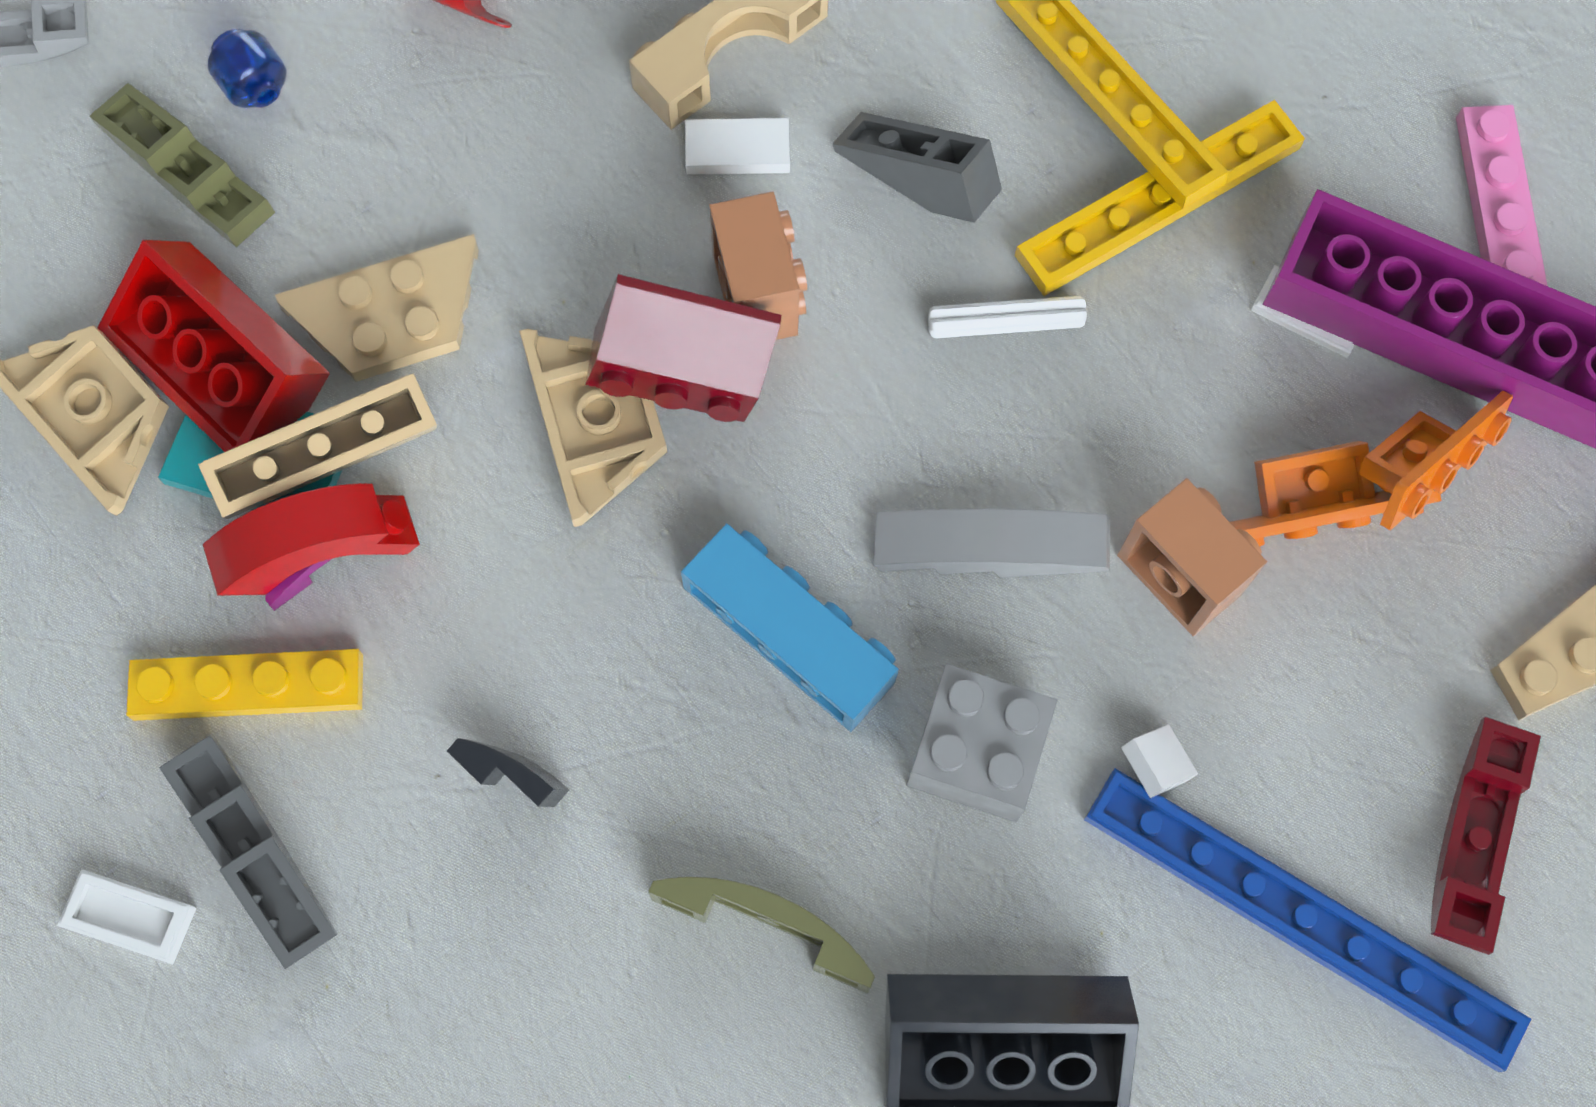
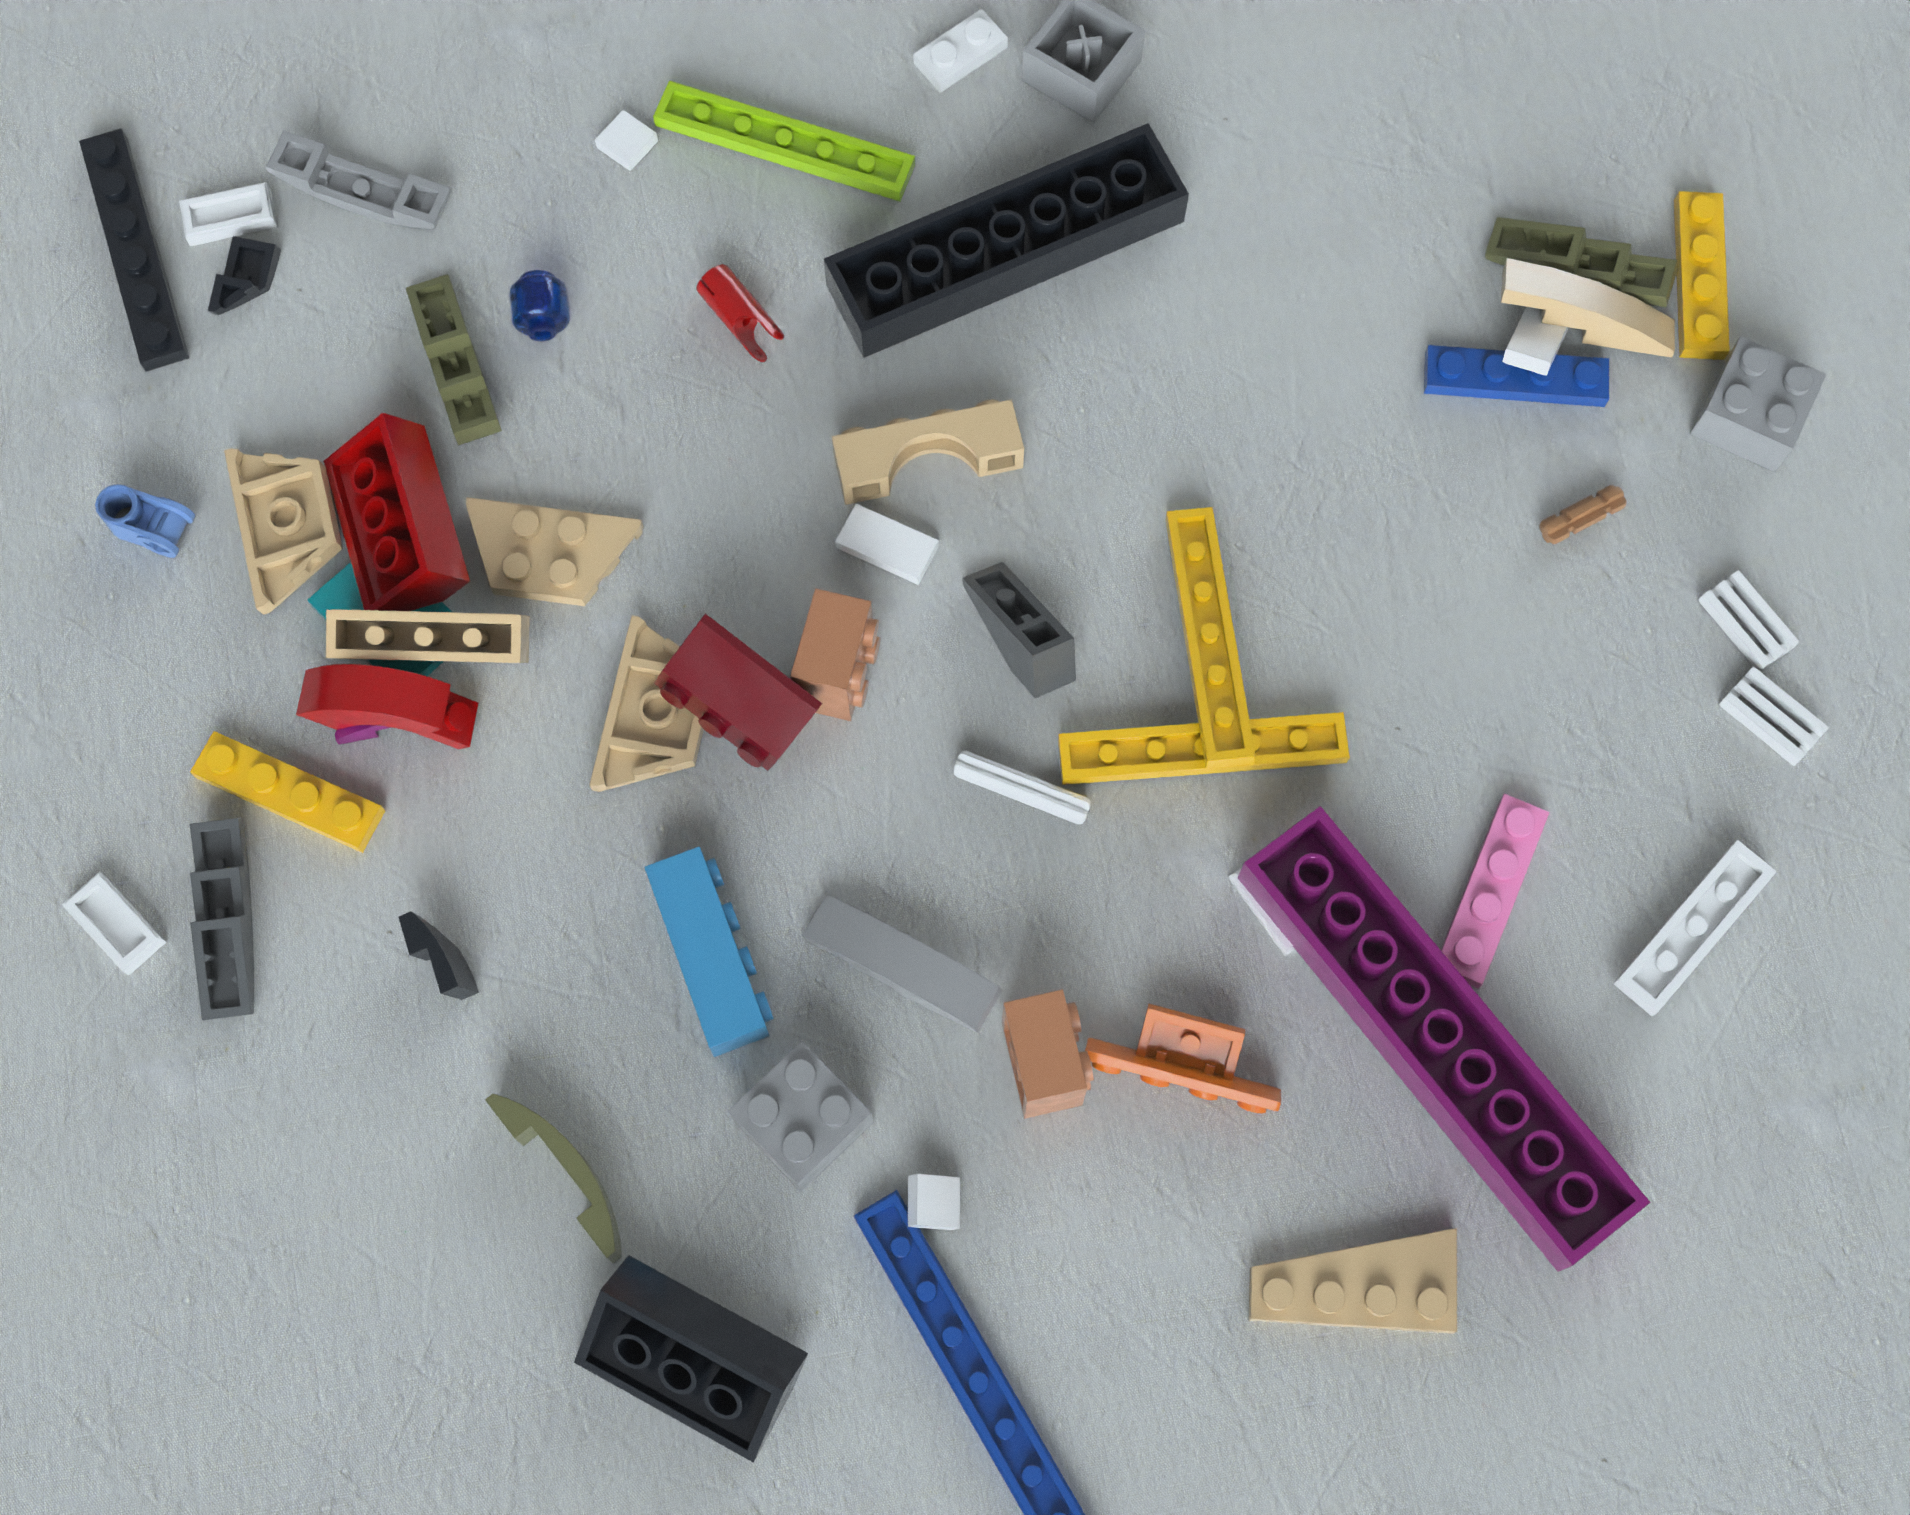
camera: 30 degrees right, 0 degrees up
(1427, 456) = (1288, 1067): orange bracket -> none
(1479, 835) = (1154, 1394): dark red slope -> none

